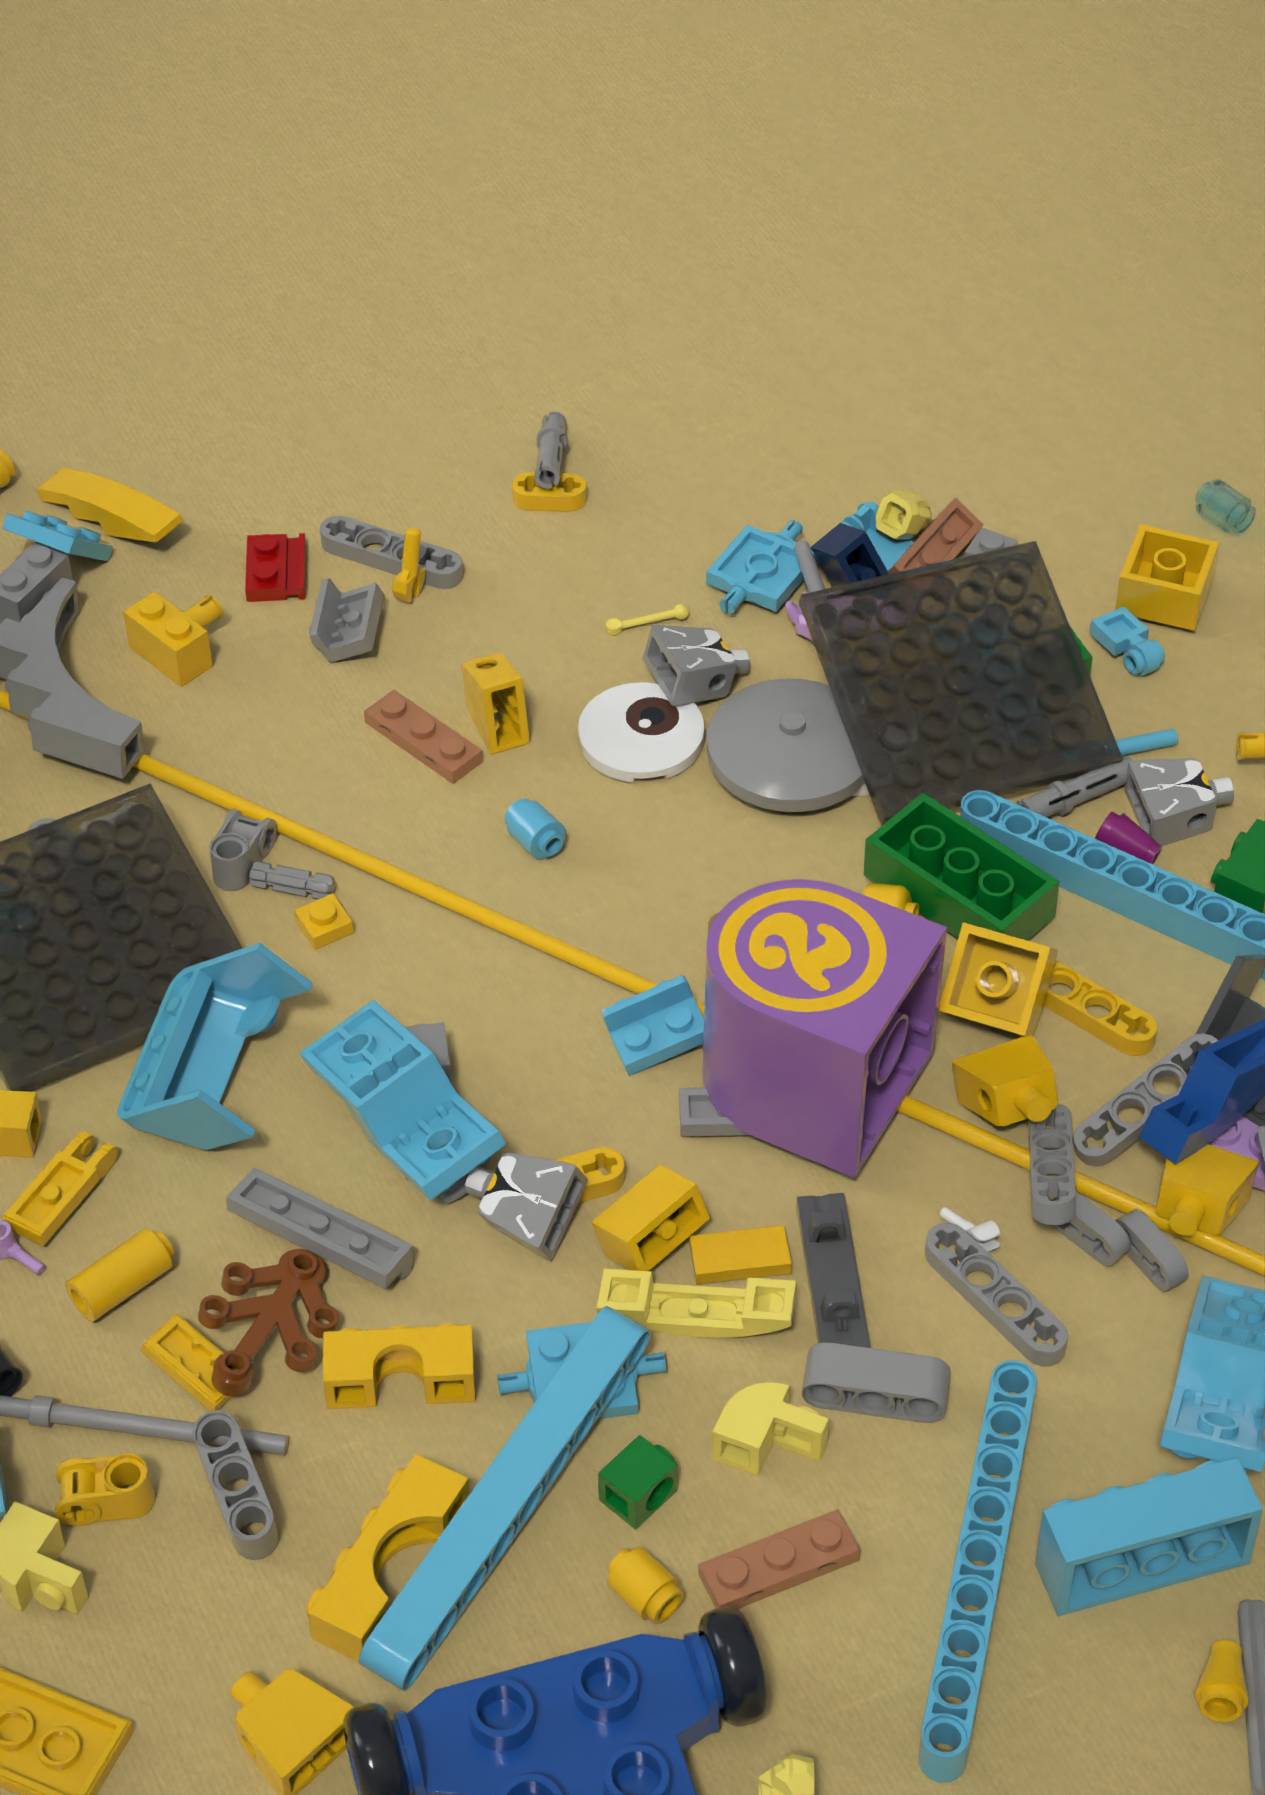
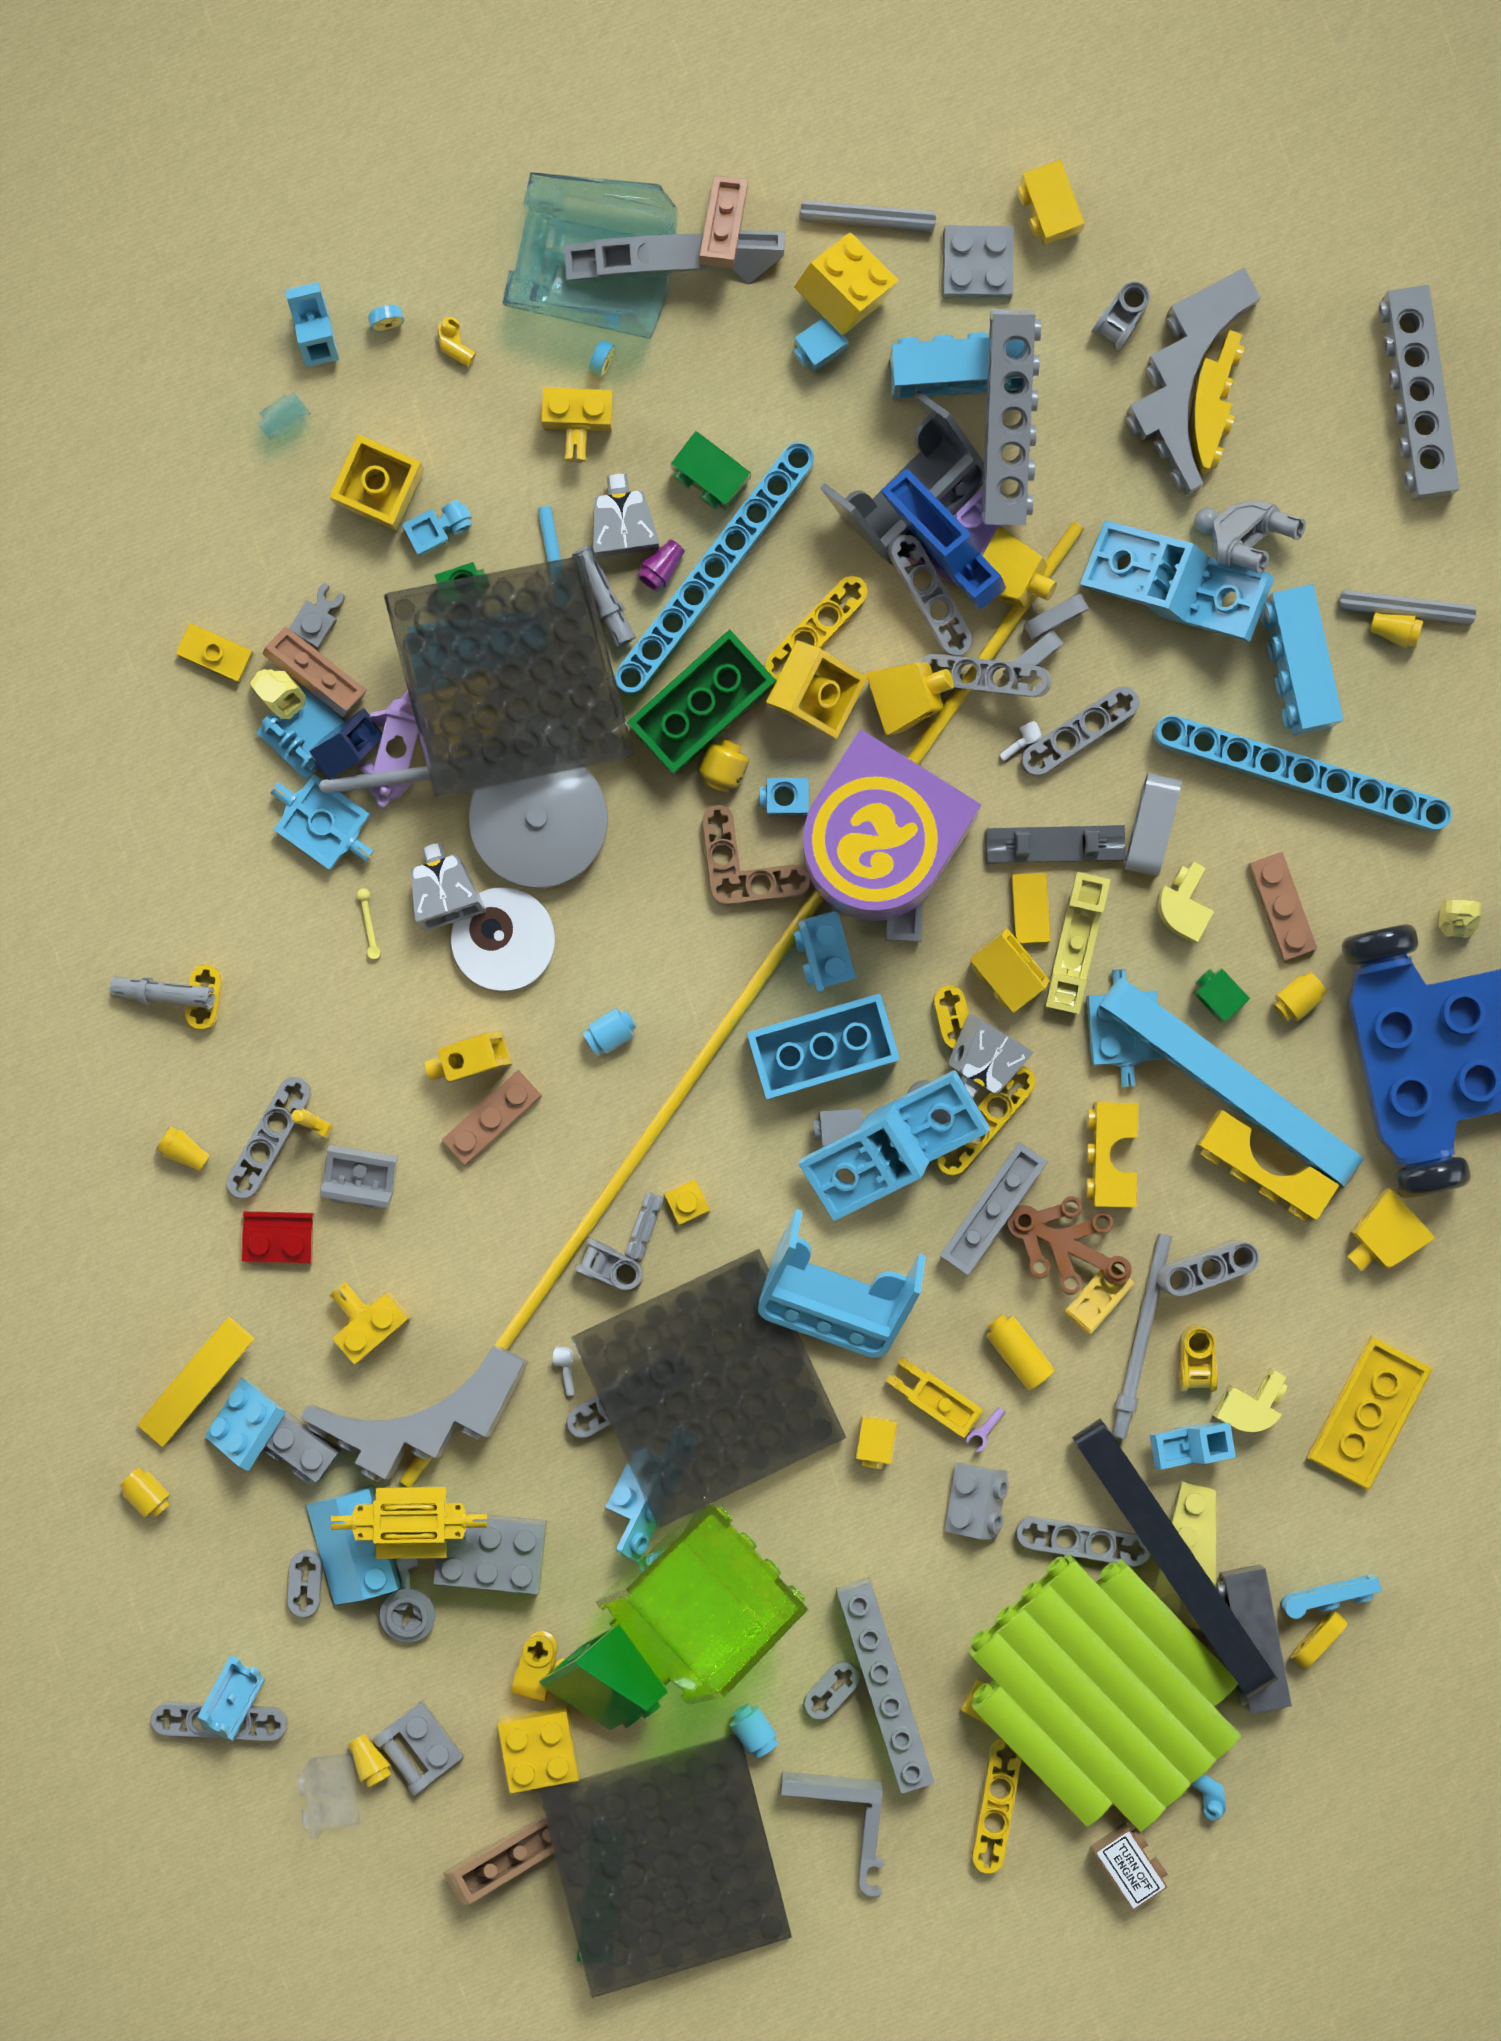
camera: 85 degrees left, 40 degrees up
(376, 478) = (182, 1149): none -> yellow cone
(437, 1226) = (993, 1122): none -> yellow beam
(530, 1026) = (823, 1046): none -> medium azure brick
(943, 475) = (214, 652): none -> yellow plate

